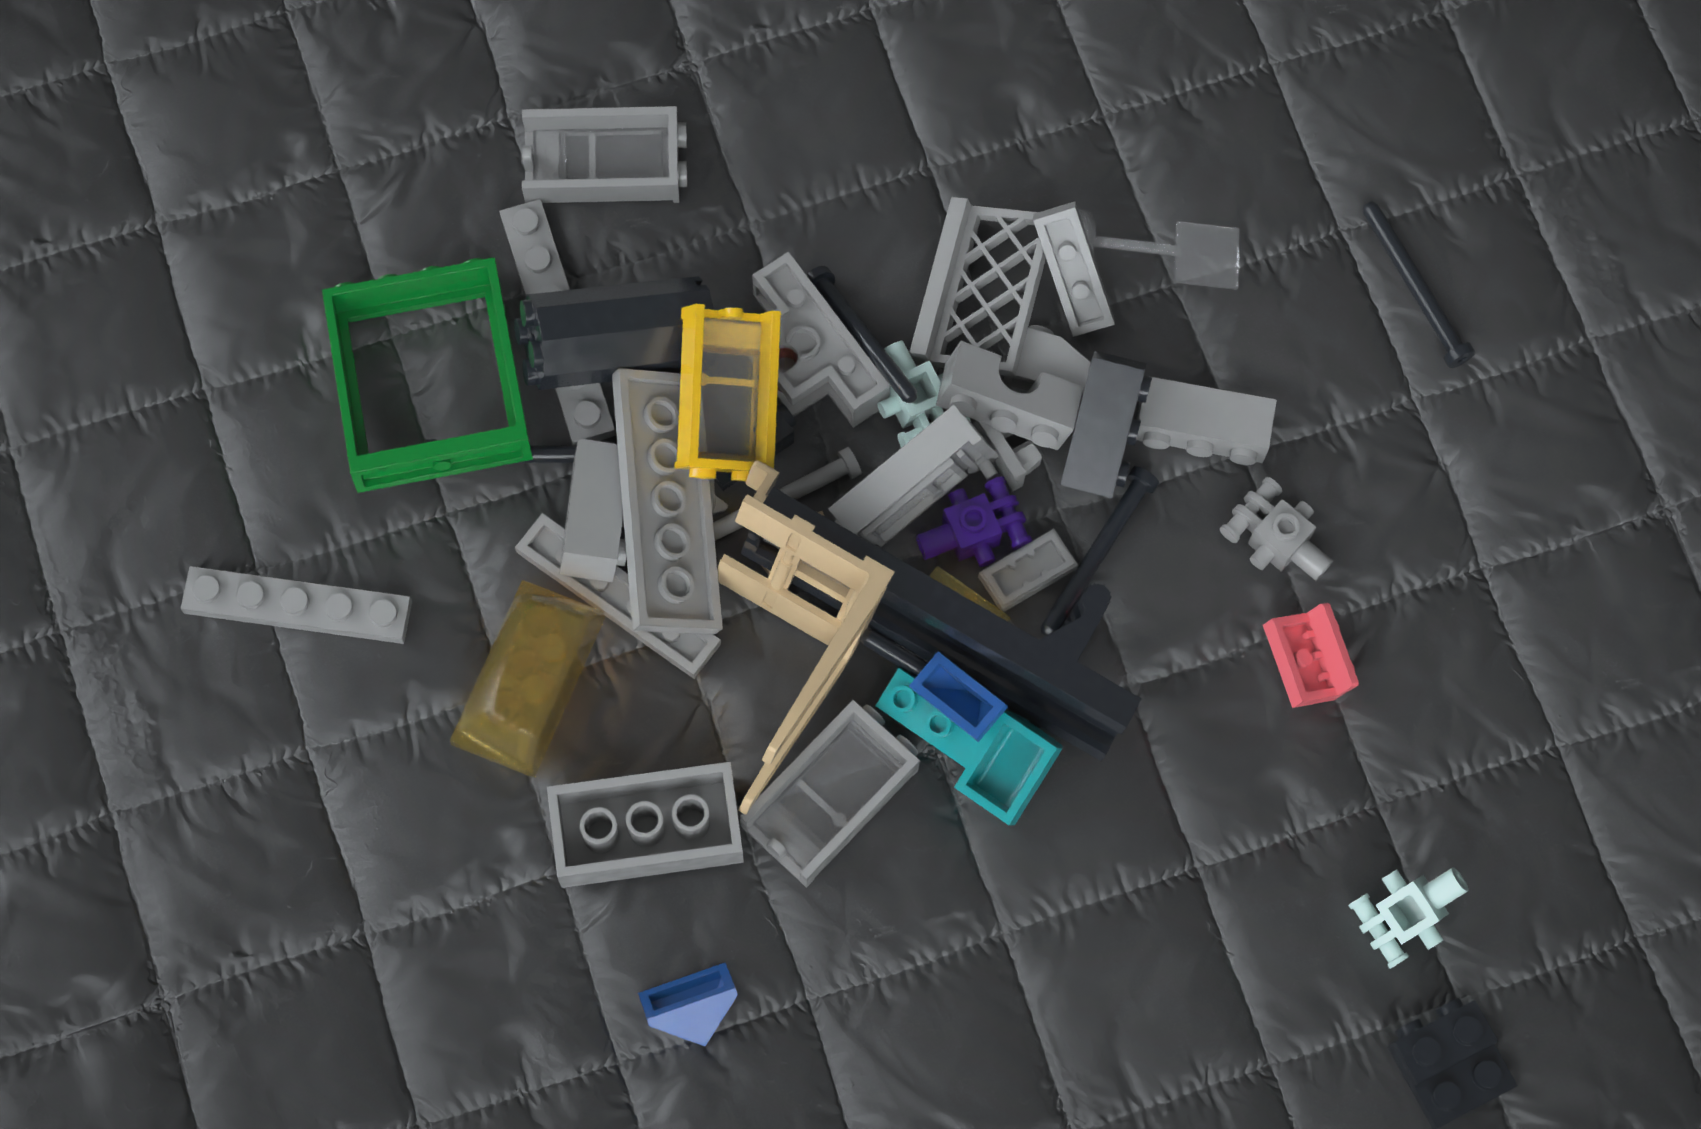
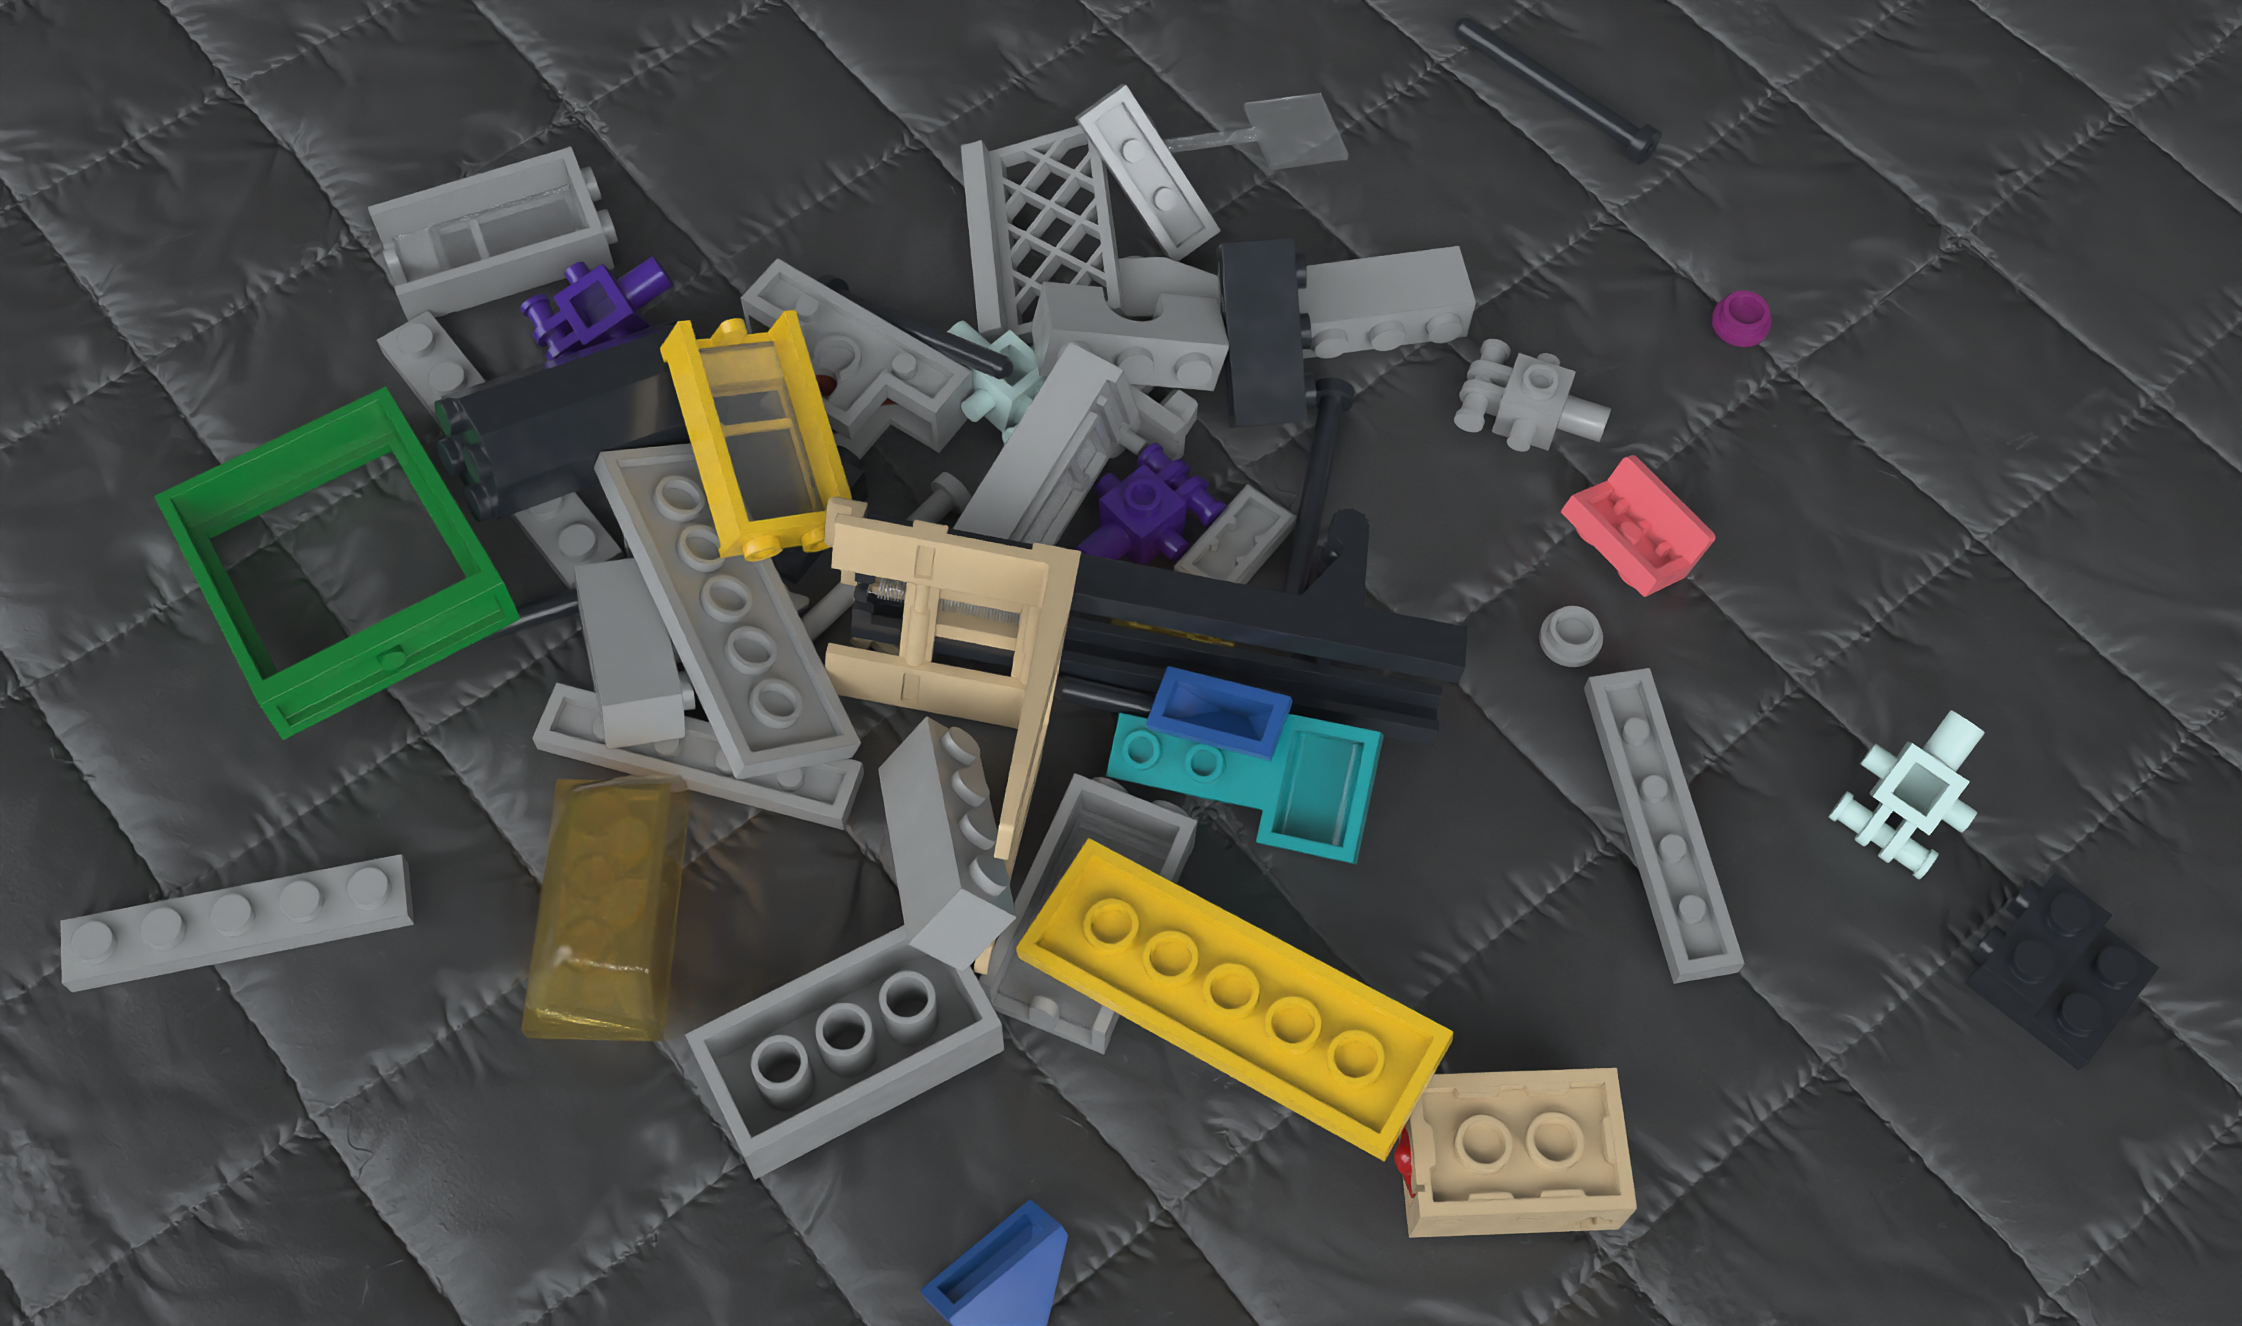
camera: 20 degrees left, 10 degrees down
(654, 244) = (595, 306): none -> dark purple piece
(746, 718) = (945, 845): none -> light grey brick
(893, 887) = (1236, 997): none -> yellow plate
(1032, 1047) = (1517, 1154): none -> tan piece
(1231, 717) = (1571, 636): none -> light grey plate
(1231, 869) = (1663, 826): none -> light grey plate
(1465, 521) = (1742, 319): none -> magenta plate

